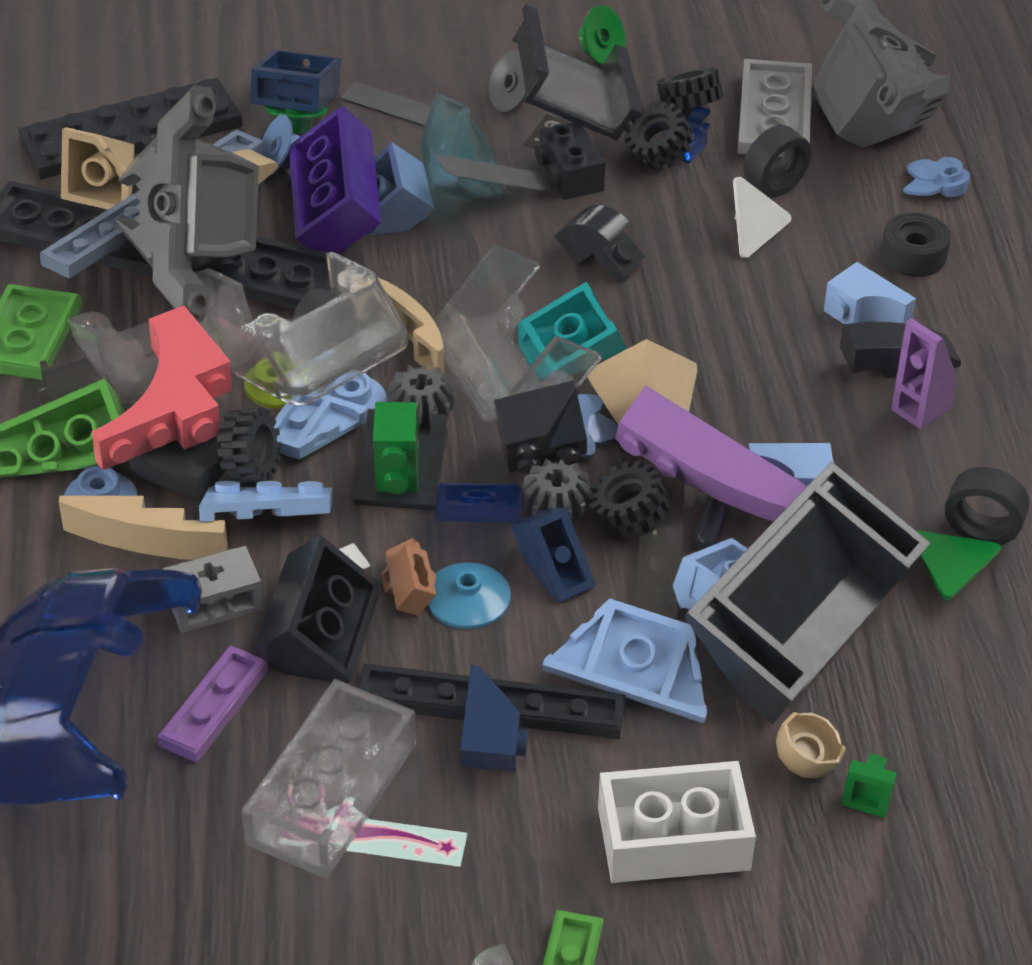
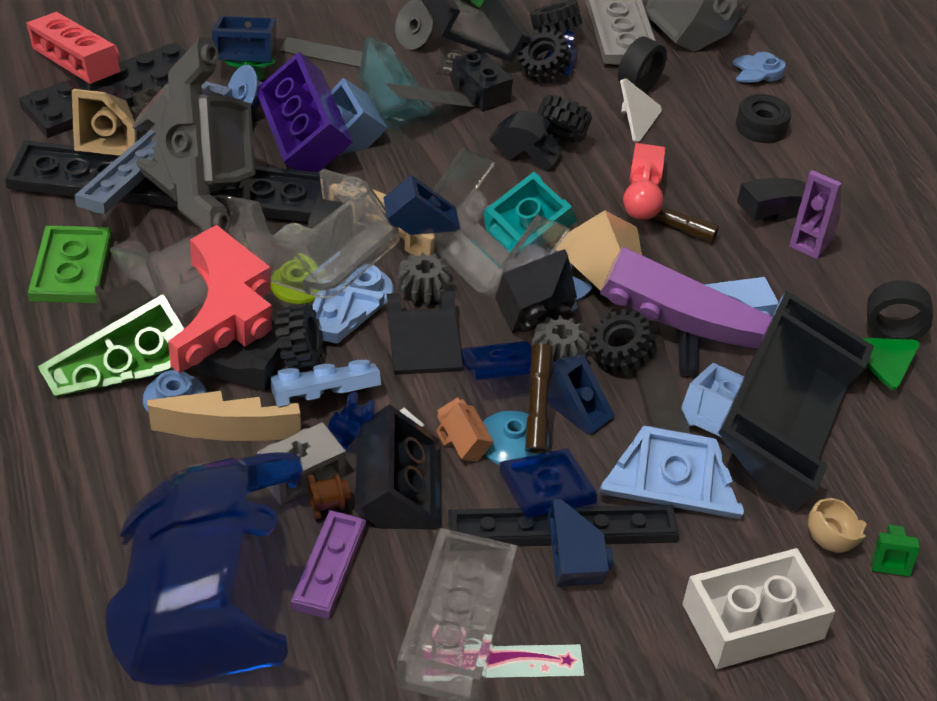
camera: 15 degrees left, 0 degrees up
(94, 73) = (74, 47): none -> coral brick
(231, 627) = (327, 494): none -> reddish brown brick
(274, 551) = (347, 423): none -> clear blue plate
(396, 447) = (426, 322): green brick -> none
(431, 313) = (419, 209): none -> dark blue slope
(493, 642) = (546, 477): none -> clear blue tile
(494, 575) = (537, 420): none -> dark brown piece
(652, 219) = (566, 117): none -> black tyre
(735, 296) = (644, 197): none -> coral beam
(771, 369) = (690, 225): none -> dark brown piece
(866, 297) = (744, 162): light blue arch -> none

